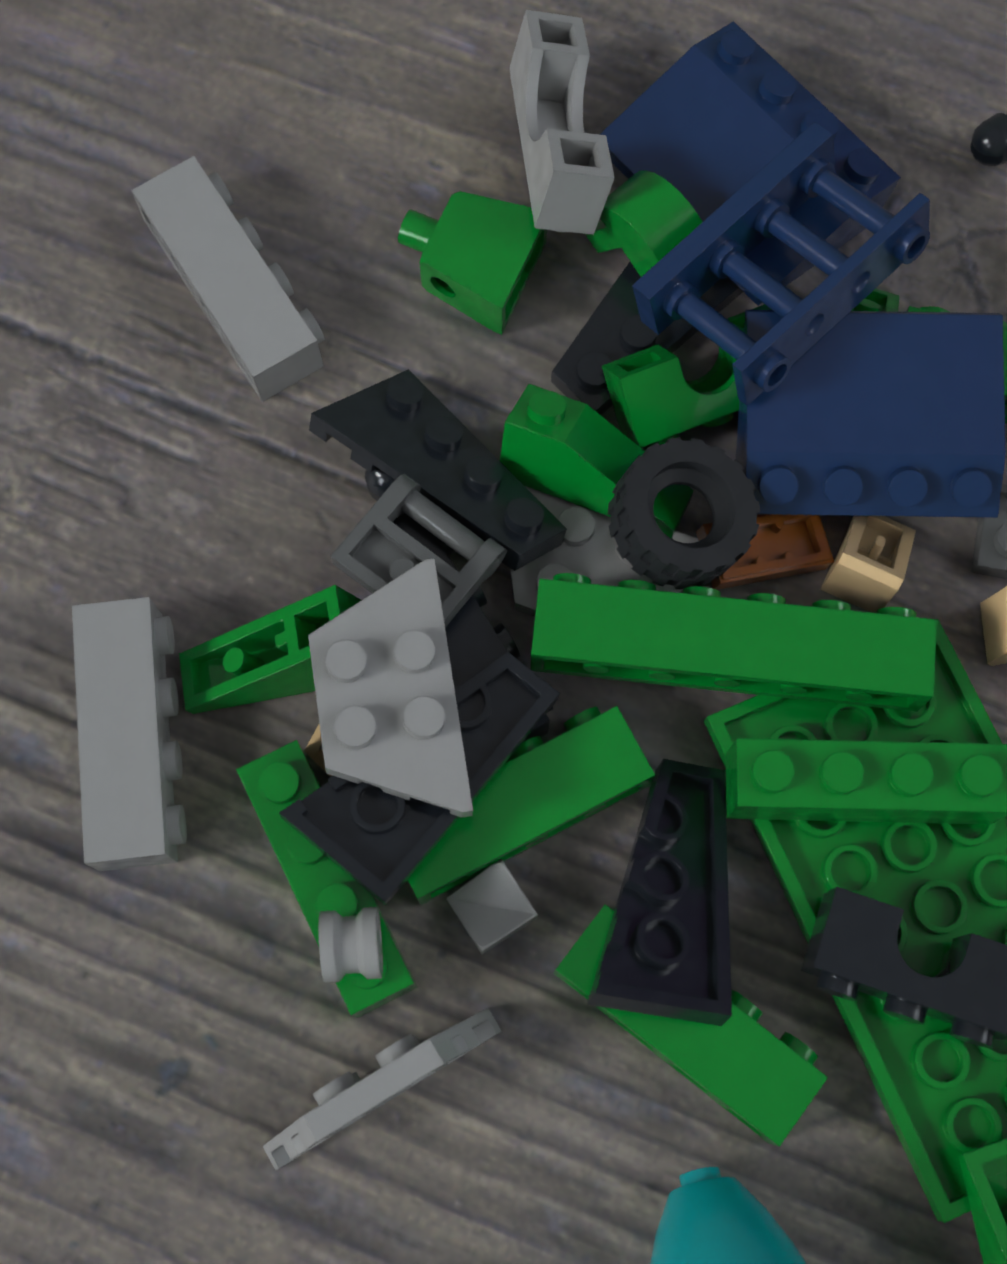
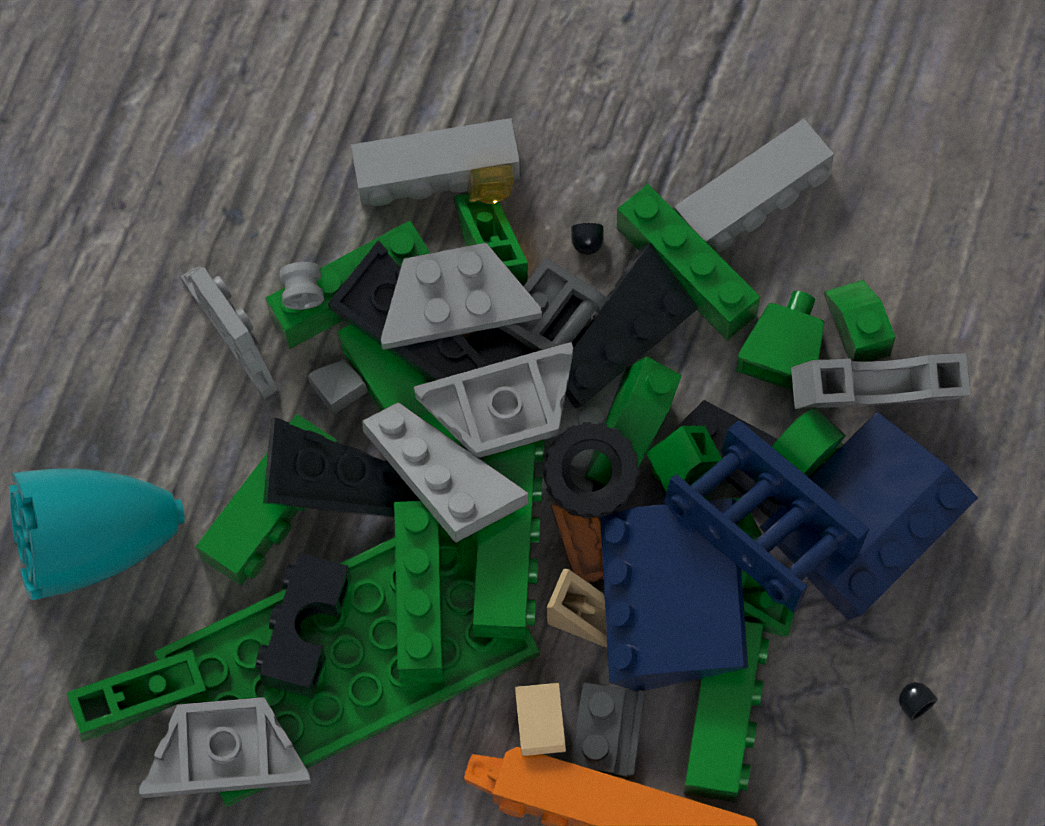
camera: 90 degrees right, 5 degrees down
(182, 644) = (490, 184): none -> clear yellow plate
(280, 516) = (587, 237): none -> black hinge
(374, 341) = (708, 280): none -> green brick
(446, 154) = (861, 321): none -> green slope
(581, 626) = (503, 401): none -> light grey wing
(697, 724) = (446, 477): none -> light grey wing

